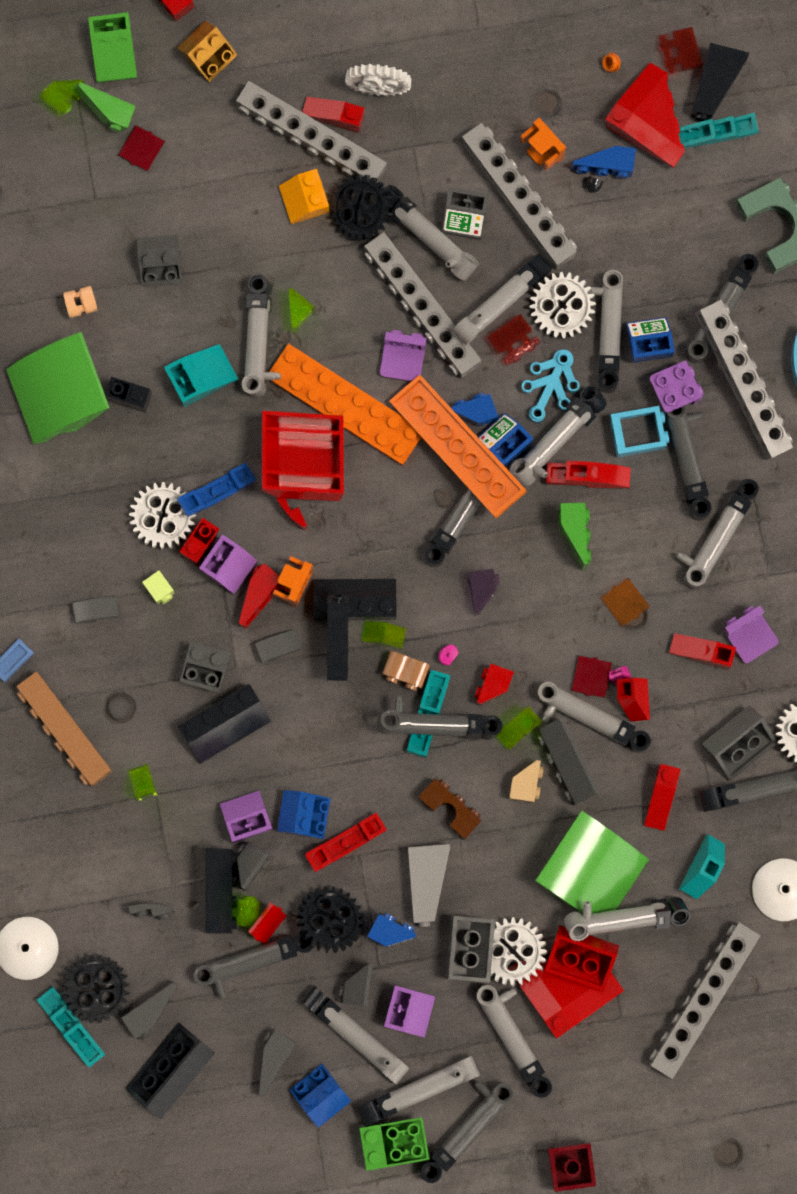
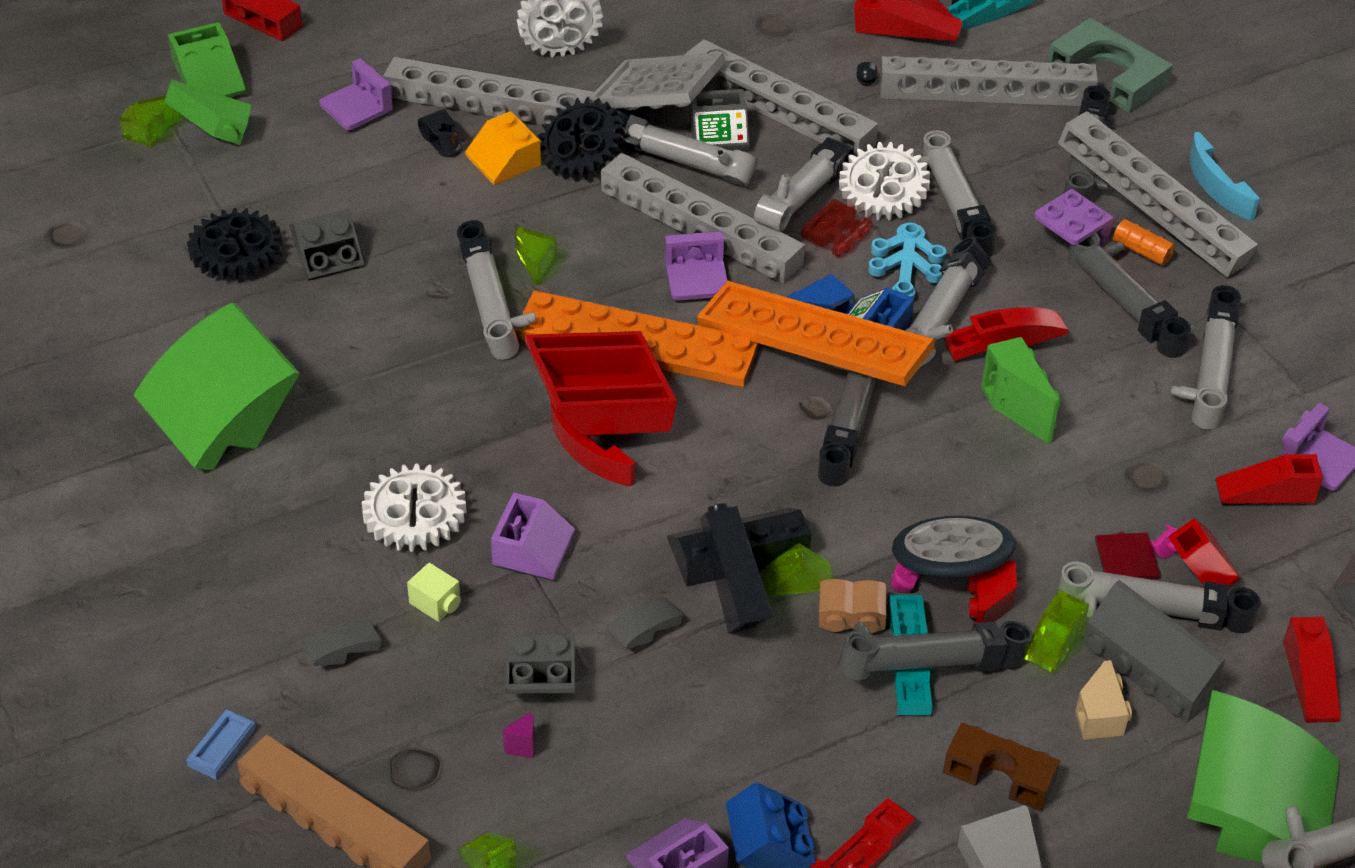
camera: 15 degrees left, 35 degrees down
(87, 300) = (230, 292): light nougat wheel -> none
(115, 236) = (220, 254): none -> black gear
(128, 394) = (326, 382): black slope -> none
(141, 148) = (270, 153): dark red piece -> none
(182, 709) = (519, 737): none -> magenta slope
(199, 542) = (479, 522): red slope -> none
(200, 374) = (416, 344): teal slope -> none
(207, 51) = (331, 49): pearl gold slope -> none
(213, 113) = (361, 101): none -> medium lavender bracket
(216, 491) = (488, 464): blue slope -> none
(224, 723) = (594, 739): black slope -> none
(259, 593) = (596, 555): red slope -> none
(265, 163) = (441, 132): none -> black piece
(294, 581) = (648, 513): orange panel -> none
(335, 113) = (525, 64): red slope -> none
(430, 166) = (658, 81): none -> light grey plate
(483, 587) = (918, 484): clear purple slope -> none
(496, 627) = (953, 546): none -> wedge
(543, 145) = (791, 41): orange panel -> none
(611, 161) = (871, 48): blue slope -> none
(617, 432) = (1027, 293): medium azure window -> none
(625, 602) = (1128, 463): clear orange piece -> none
(650, 340) = (1016, 191): blue slope -> none
(677, 220) = (985, 80): none -> light grey brick
(720, 415) = (1144, 242): none -> orange axle

